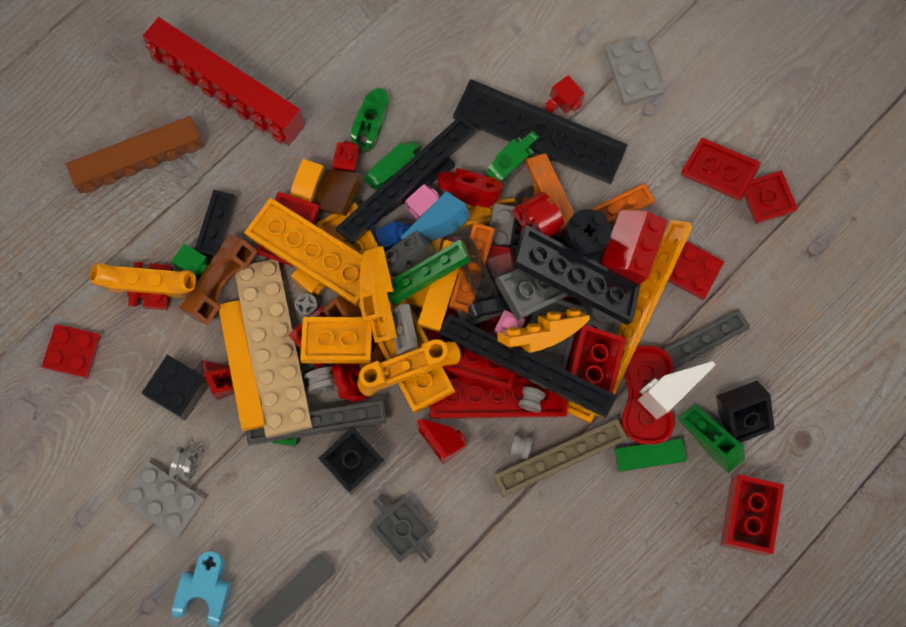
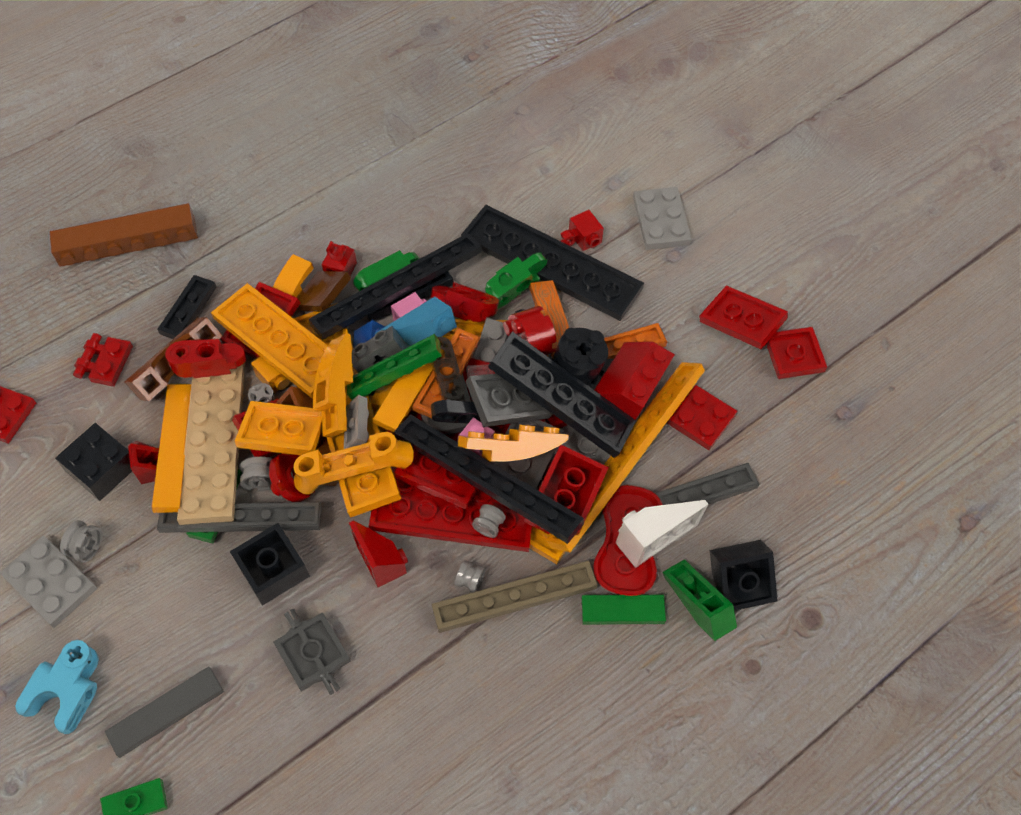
camera: 15 degrees right, 15 degrees down
(142, 280) = (70, 346): light orange plate -> none
(190, 260) = (148, 338): green brick -> none
(223, 81) = (232, 178): red brick -> none
(268, 272) = (204, 358): none -> red piece
(374, 104) = (373, 231): green piece -> none
(752, 515) = (737, 693): red brick -> none

